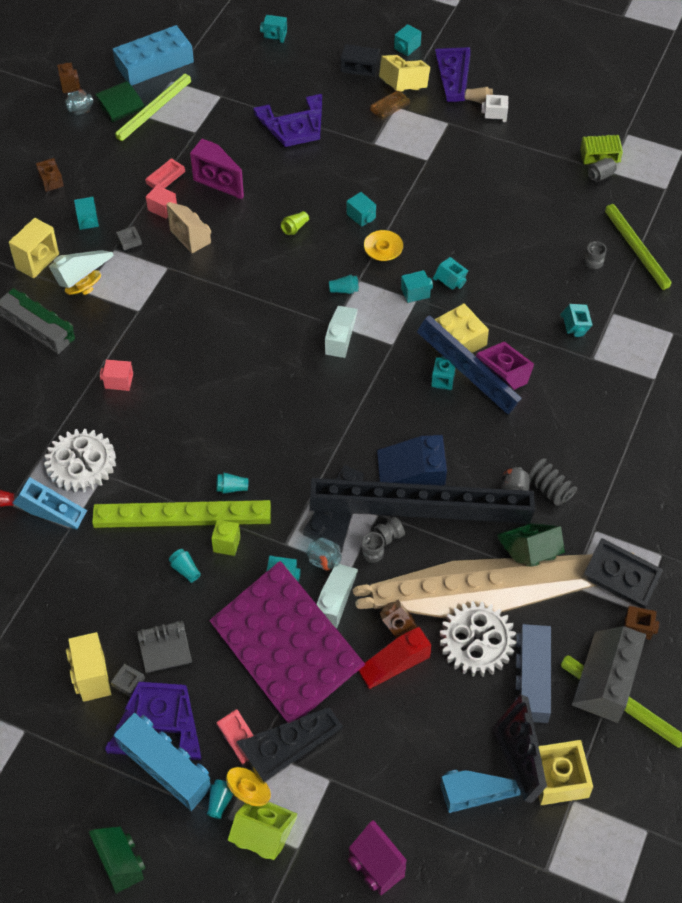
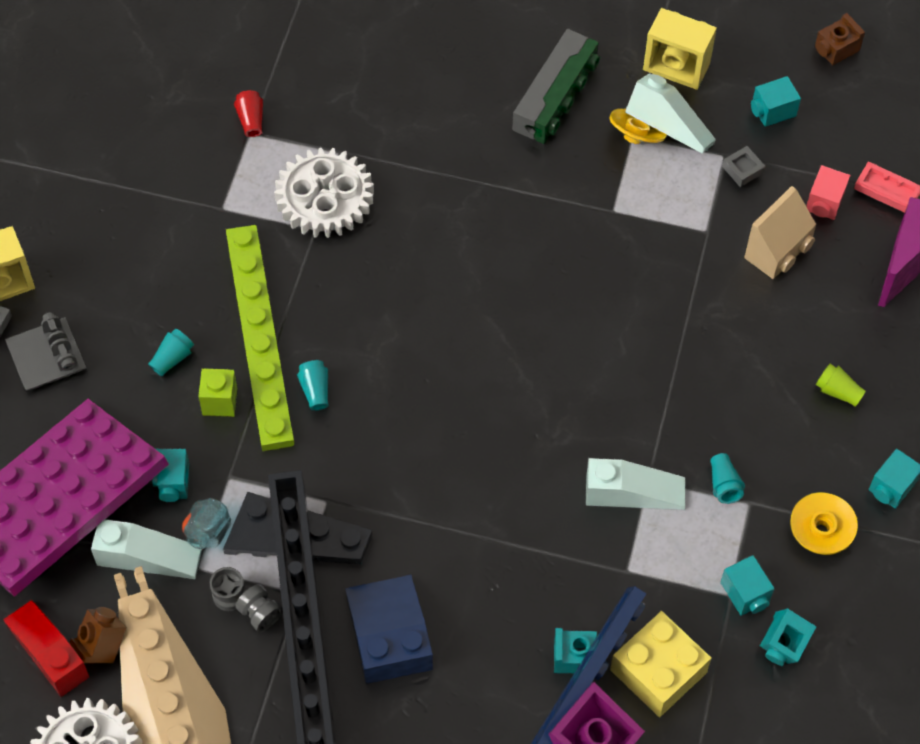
camera: 80 degrees right, 5 degrees up
(48, 504) = (245, 172): dark azure slope -> none
(117, 375) = (479, 205): coral brick -> none

